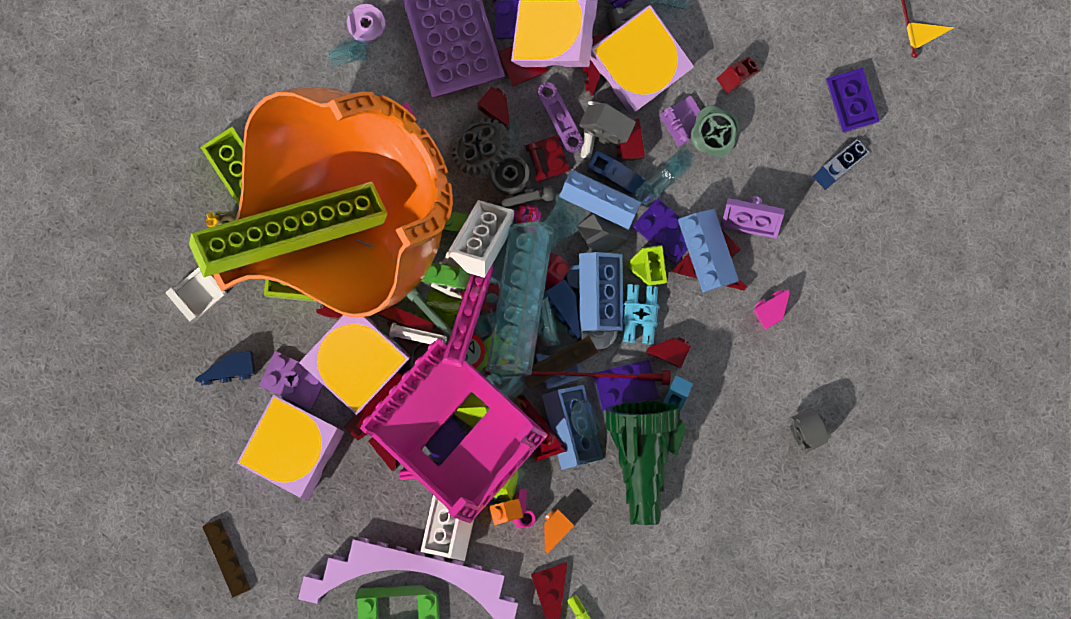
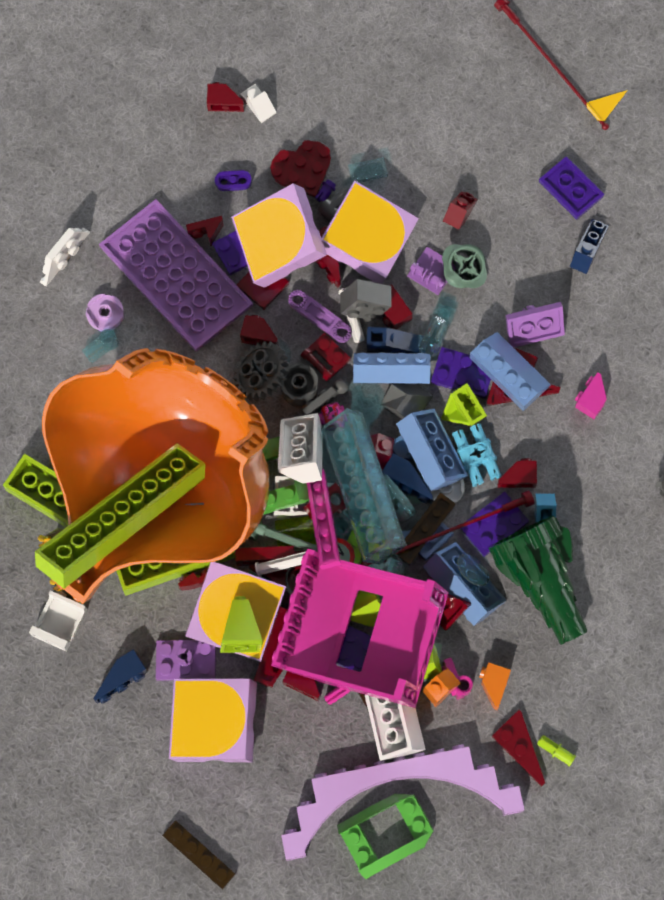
camera: 25 degrees left, 10 degrees down
(350, 378) = (241, 629): none -> lime slope

